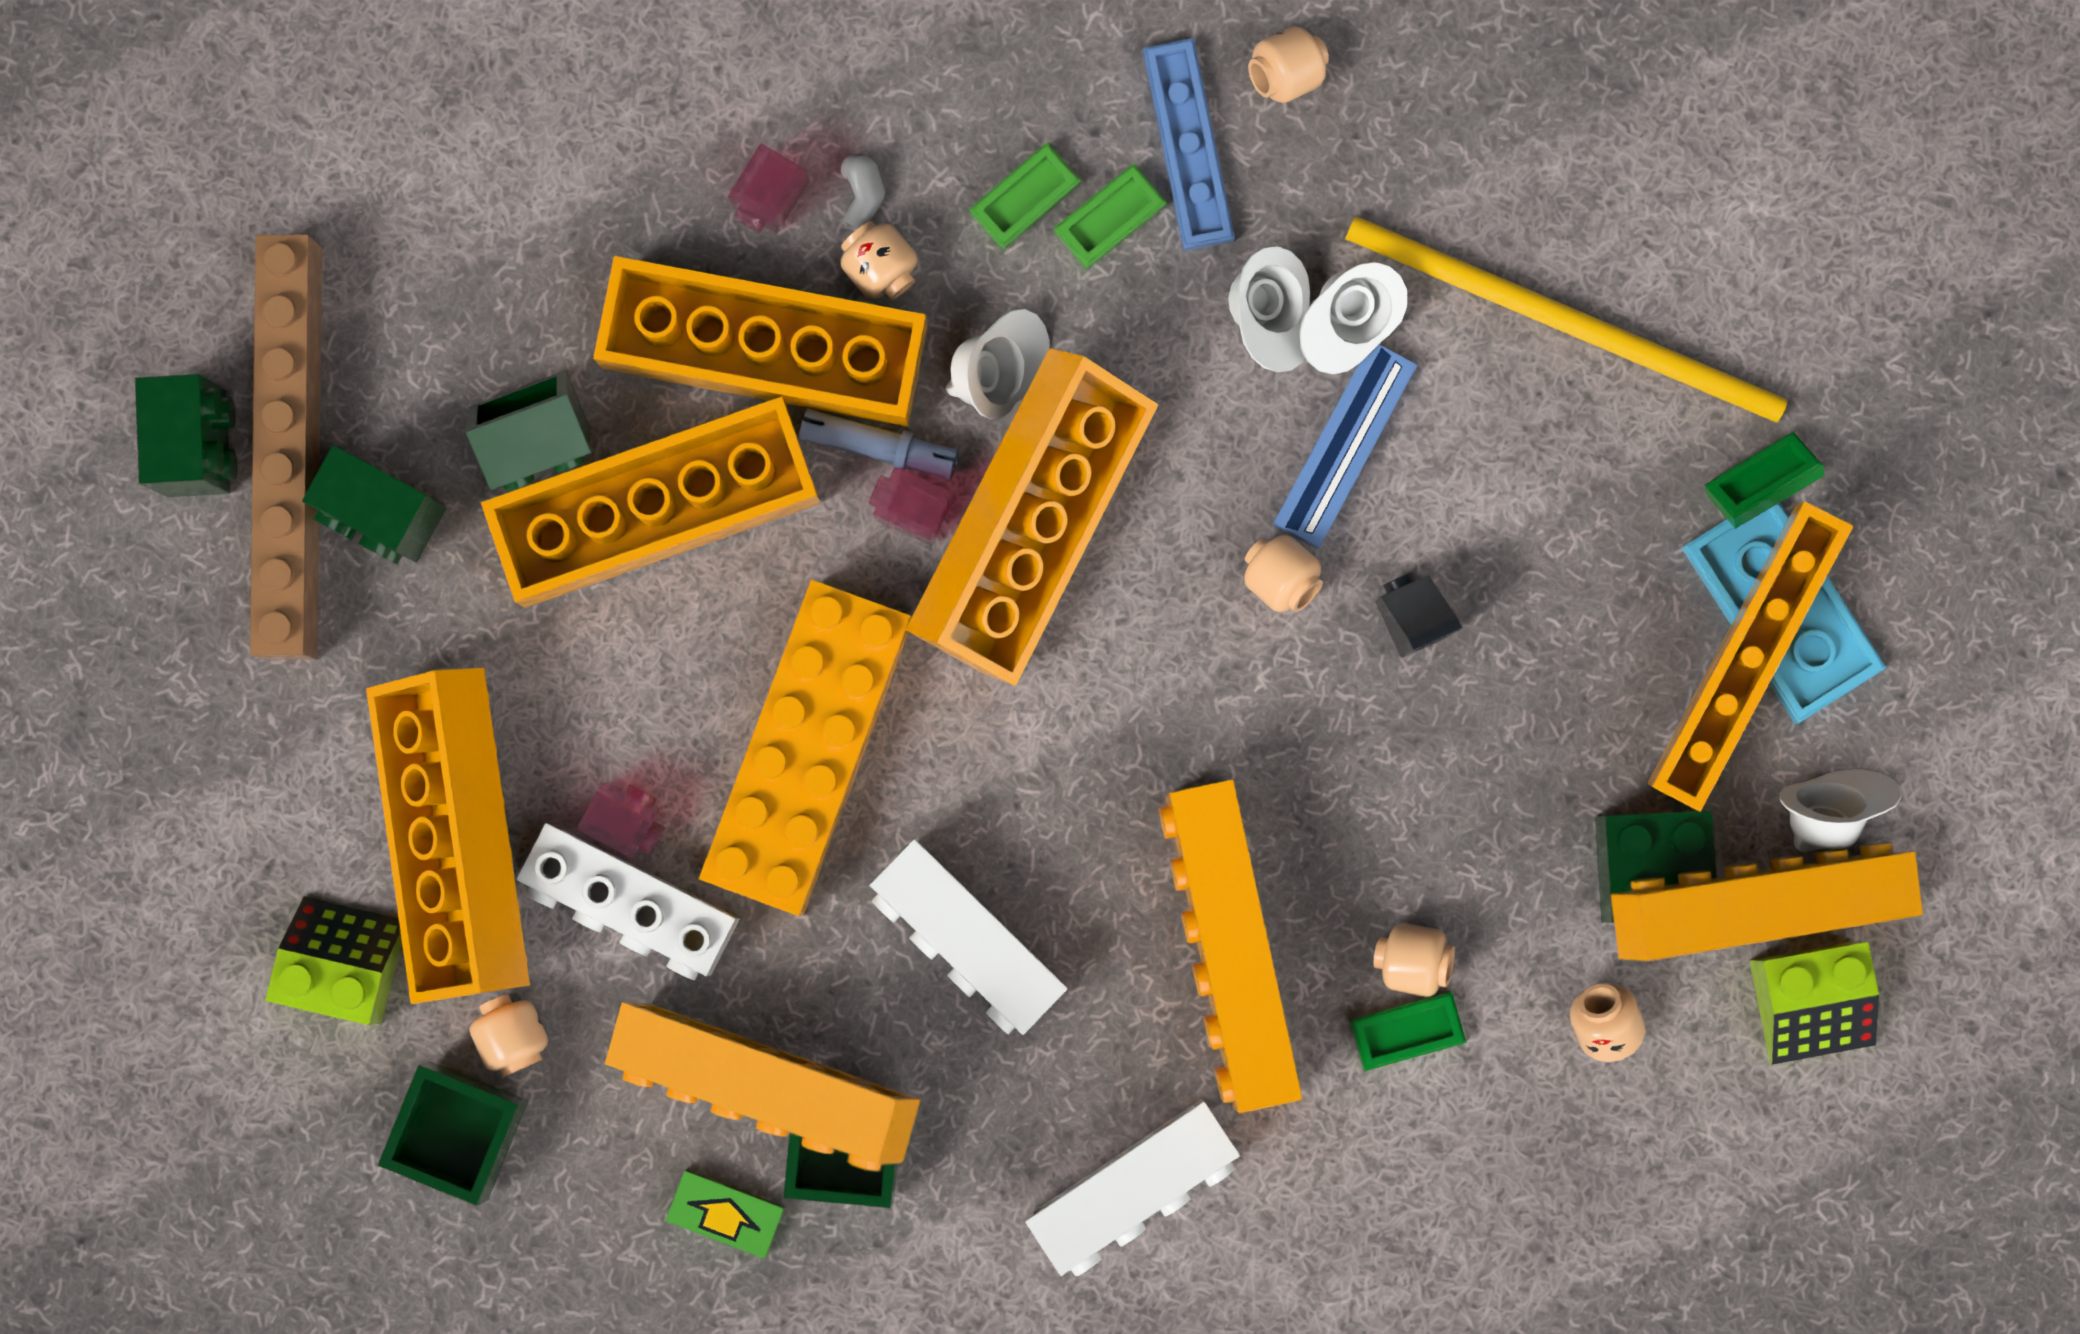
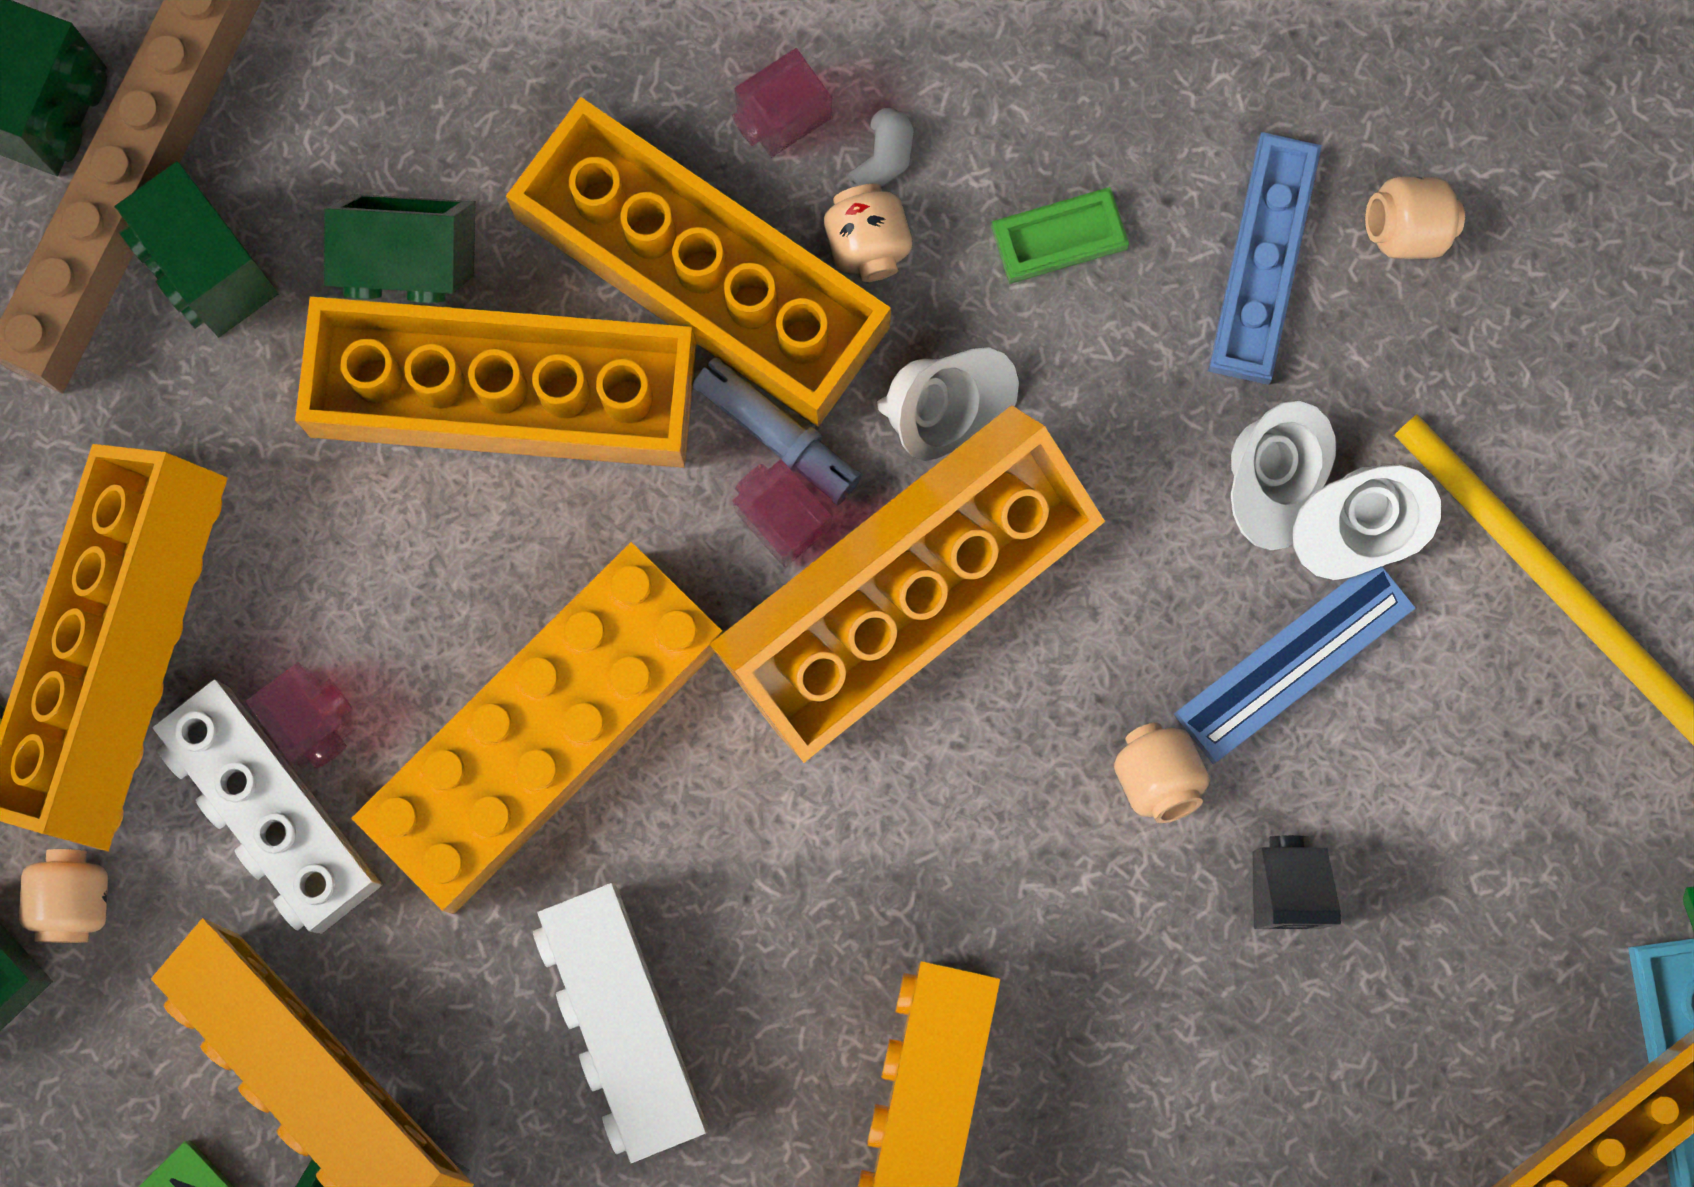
camera: 25 degrees right, 5 degrees down
(1110, 216) = (1143, 297): bright green tile -> none

